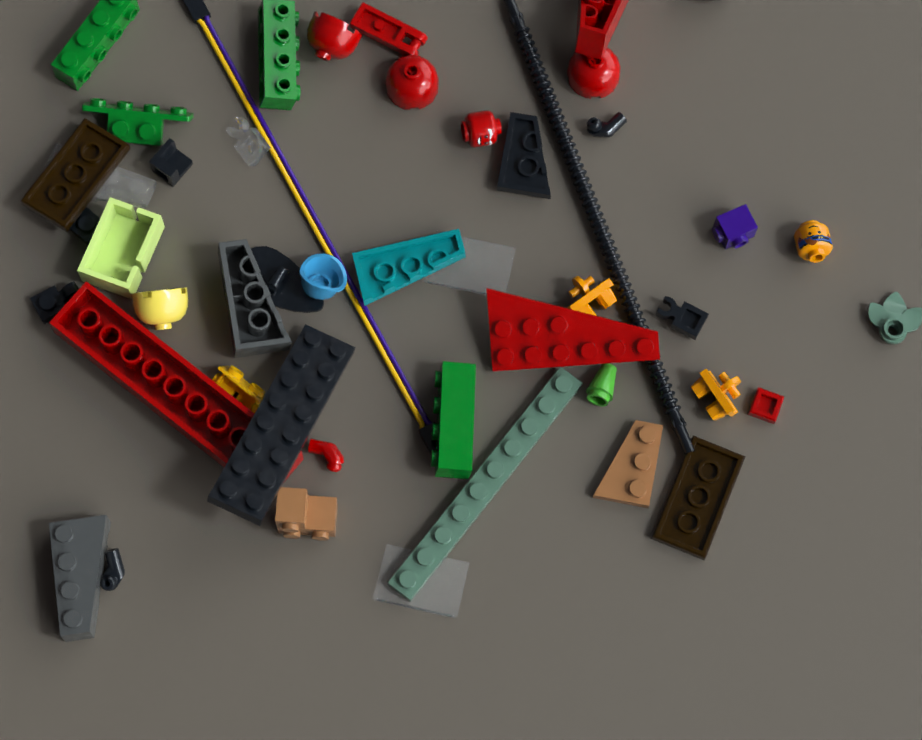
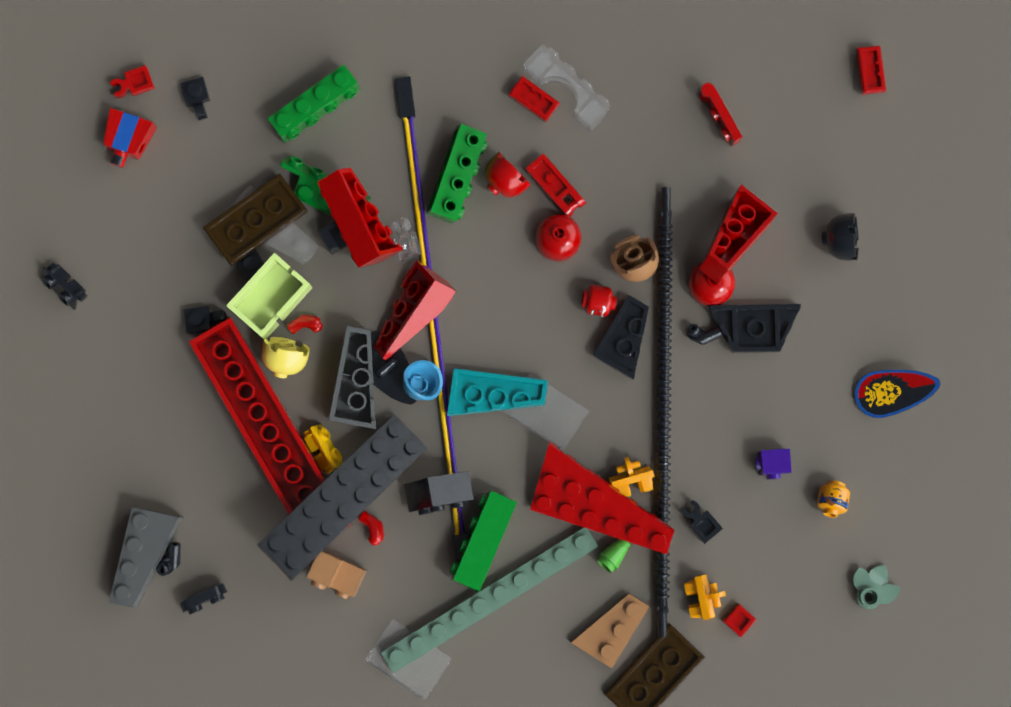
camera: 20 degrees right, 10 degrees up
(158, 605) = (195, 603): none -> black plate
(169, 263) = (306, 321): none -> red arm
(188, 131) = (357, 219): none -> red wedge
(289, 193) = (420, 302): none -> red wedge
(384, 384) = (435, 492): none -> black brick
(503, 71) = (635, 258): none -> medium nougat cylinder
(656, 98) = (755, 326): none -> black wing
(830, 110) = (893, 391): none -> shield

